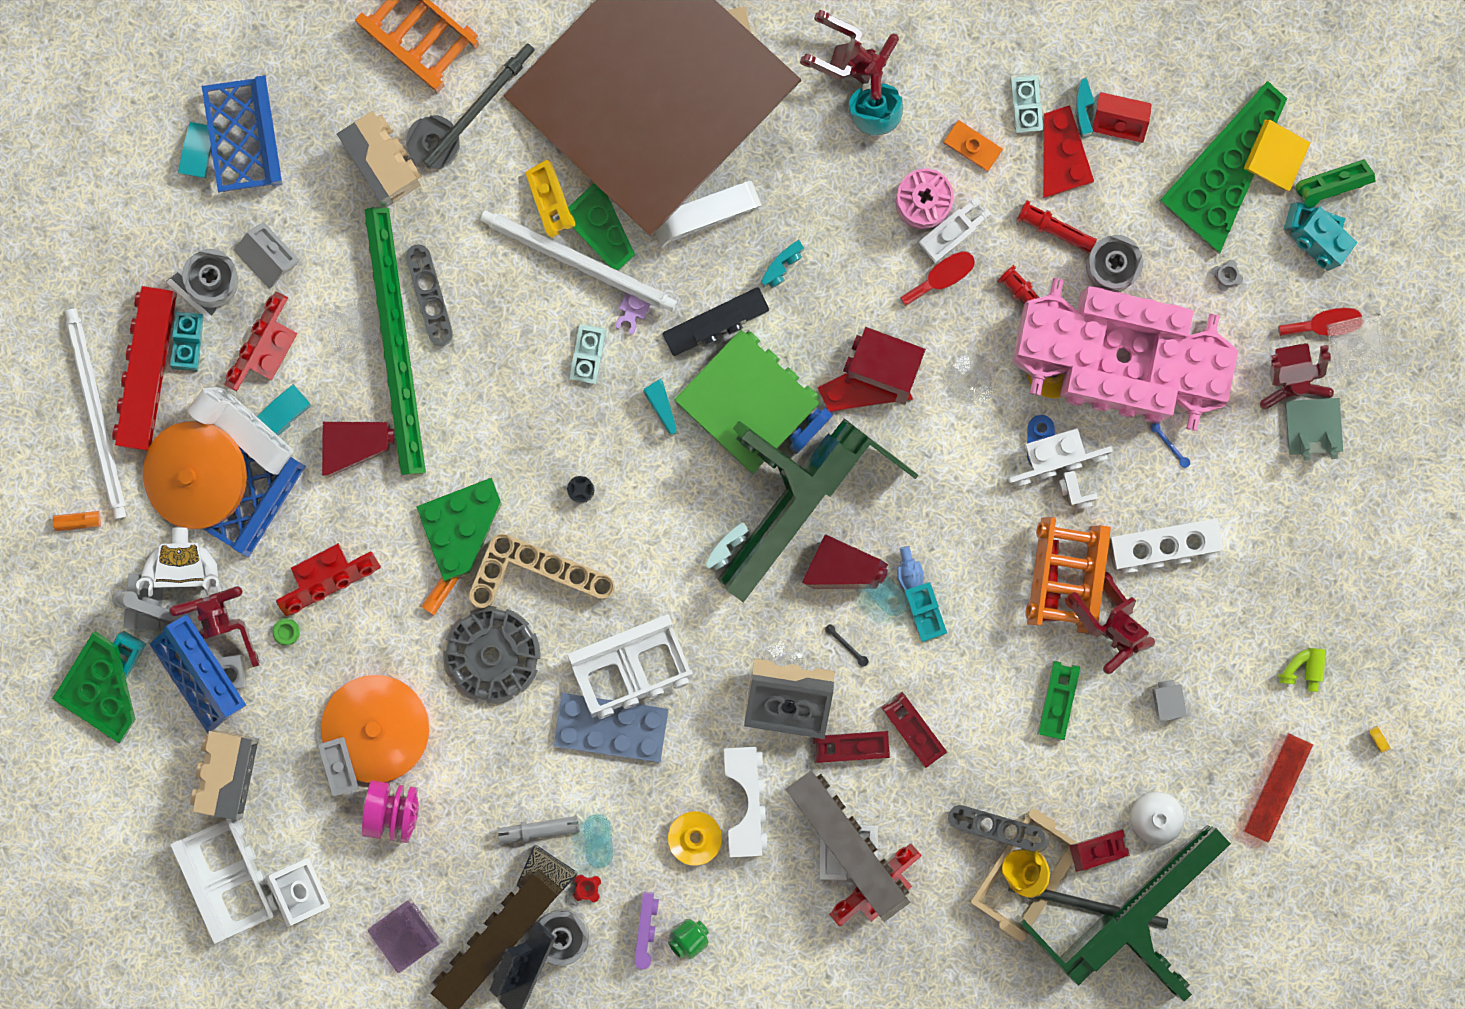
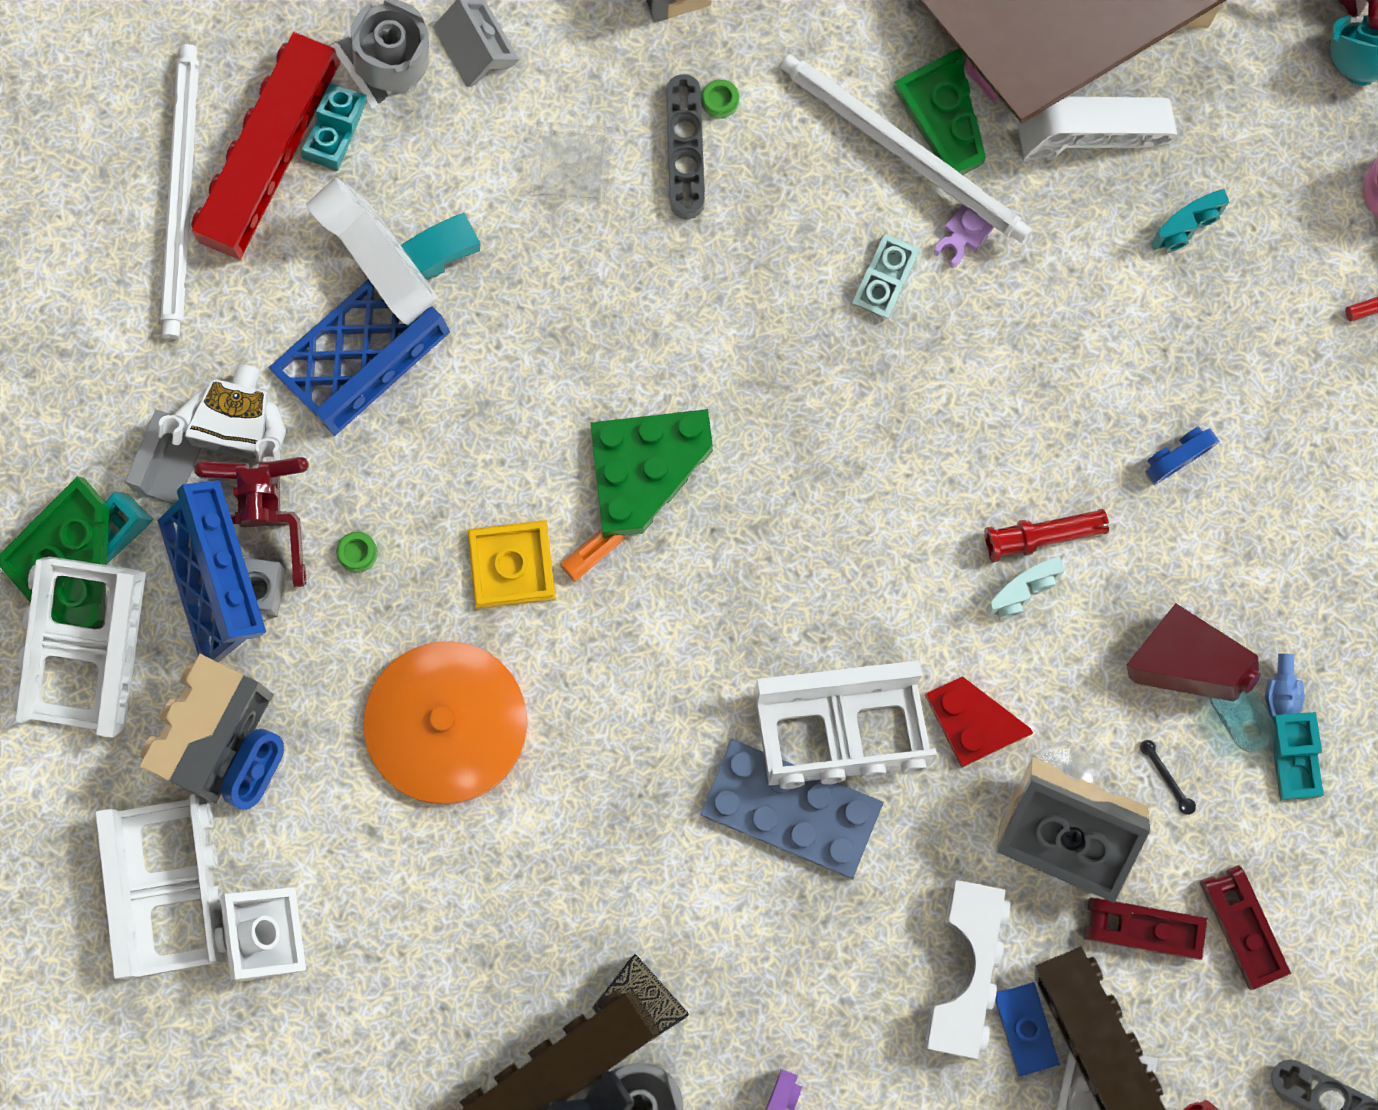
camera: 10 degrees right, 10 degrees down
(76, 521) = (108, 325): orange piece -> none
(145, 737) = (109, 647): none -> white window
(147, 606) = (164, 459): light grey plate -> none
(194, 475) = (291, 299): orange dish -> none
(260, 790) = (252, 769): none -> blue plate
(265, 346) = (440, 159): bracket -> none
(325, 575) = (434, 487): red bracket -> none
(338, 766) = (375, 761): light grey panel -> none
(353, 443) = (525, 314): dark red slope -> none
(389, 614) = (511, 564): none -> yellow tile
(390, 811) = (429, 845): dark pink wheel -> none
(395, 341) = (620, 196): green plate -> none
(404, 935) = (403, 1042): clear purple bracket -> none
(444, 254) = (720, 98): none -> bright green tile
(507, 660) = (643, 682): dark grey plate -> none
(537, 566) = (741, 548): tan beam -> none
(537, 829) = (645, 933): light grey pin -> none
(549, 198) = (885, 55): yellow plate -> none
(578, 486) = (829, 449): black wheel -> none
(581, 893) = (685, 1045): red plate -> none
(598, 840) = (732, 972): clear light blue plate -> none
(659, 401) = (973, 364): teal slope -> none
(690, 852) = (901, 1002): yellow dish -> none
(714, 641) = (974, 721): none -> red wing
(716, 321) = (1077, 277): black bracket -> none
(721, 511) = (1027, 536): none -> red pin
(749, 388) = (1099, 392): bright green panel -> none
(790, 828) = (1026, 1029): none -> blue plate
(803, 493) = (1159, 528): dark green piece -> none
(843, 396) = (1277, 414): red wing -> none
(884, 362) = (1313, 384): dark red panel -> none

